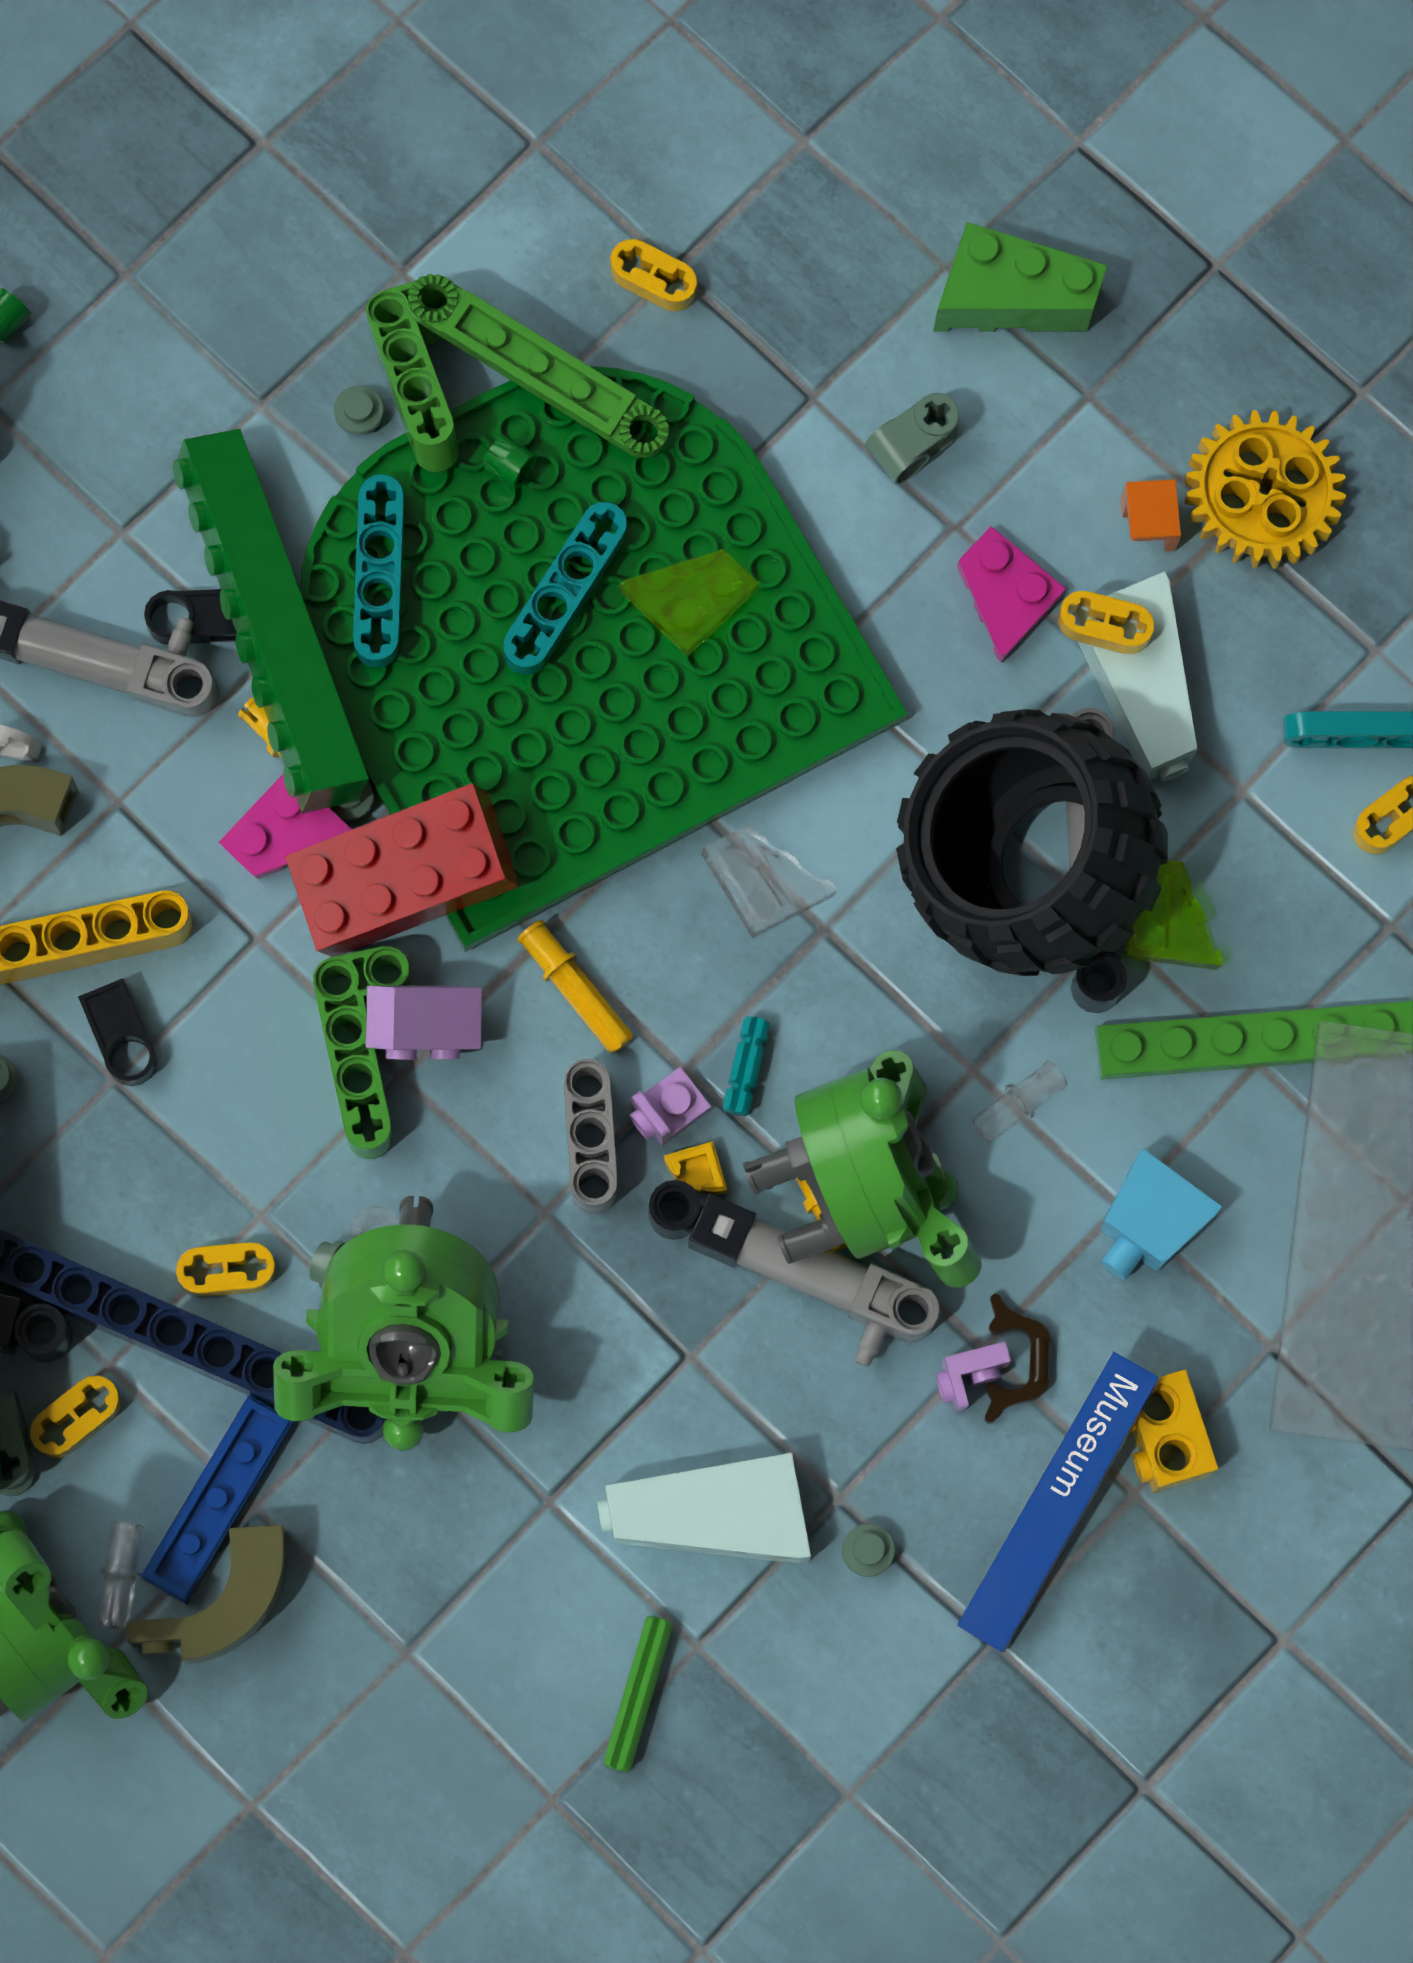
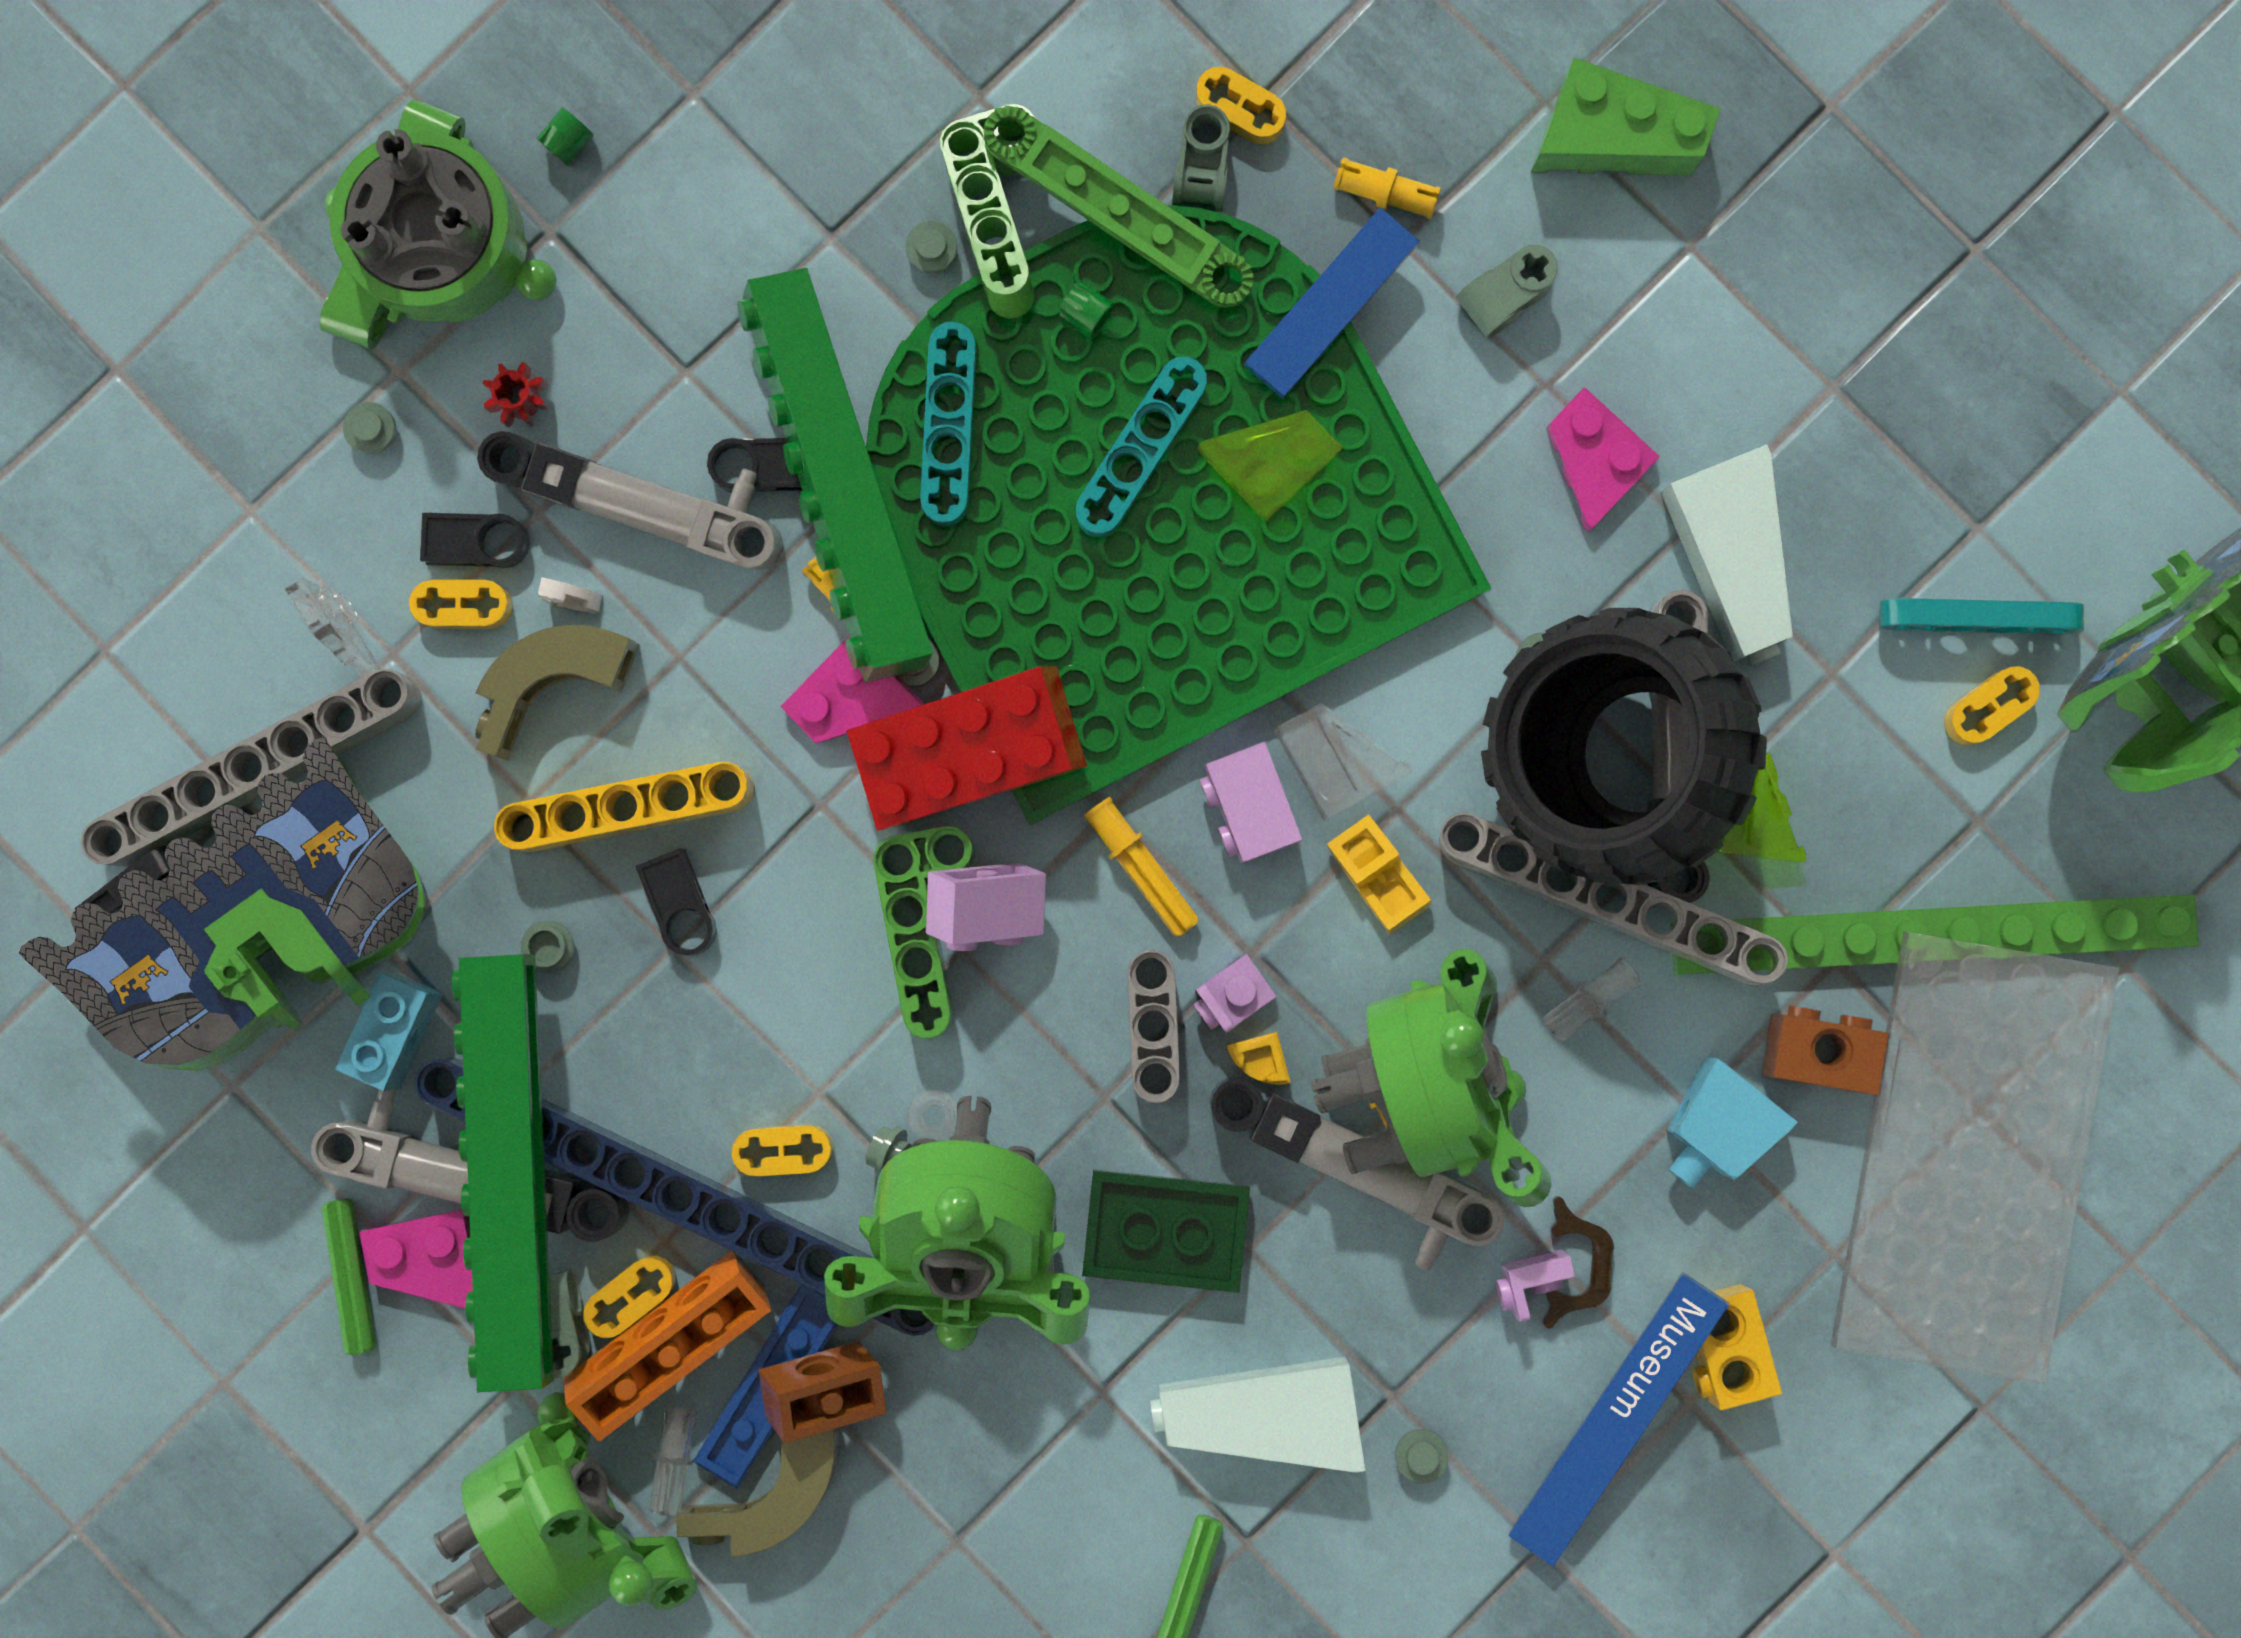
camera: 10 degrees right, 10 degrees up
(114, 1455) = (665, 1345): none -> orange brick
(270, 1493) = (822, 1391): none -> dark orange brick
(608, 1335) = (1166, 1231): none -> dark green plate
(618, 331) = (1202, 167): none -> sand green piece
(681, 922) = (1250, 803): none -> lavender brick
(744, 452) = (1331, 303): none -> blue tile
(746, 1066) = (1313, 953): teal axle -> none
(795, 347) = (1387, 188): none -> yellow pin
(808, 989) = (1379, 874): none -> yellow slope
(1046, 1020) = (1632, 918): none -> light grey beam
(1109, 611) = (1707, 488): yellow beam -> none
(1152, 511) = (1755, 377): orange panel -> none
(1220, 1156) = (1857, 1055): none -> dark orange brick
(1280, 451) = (1888, 311): yellow gear -> none

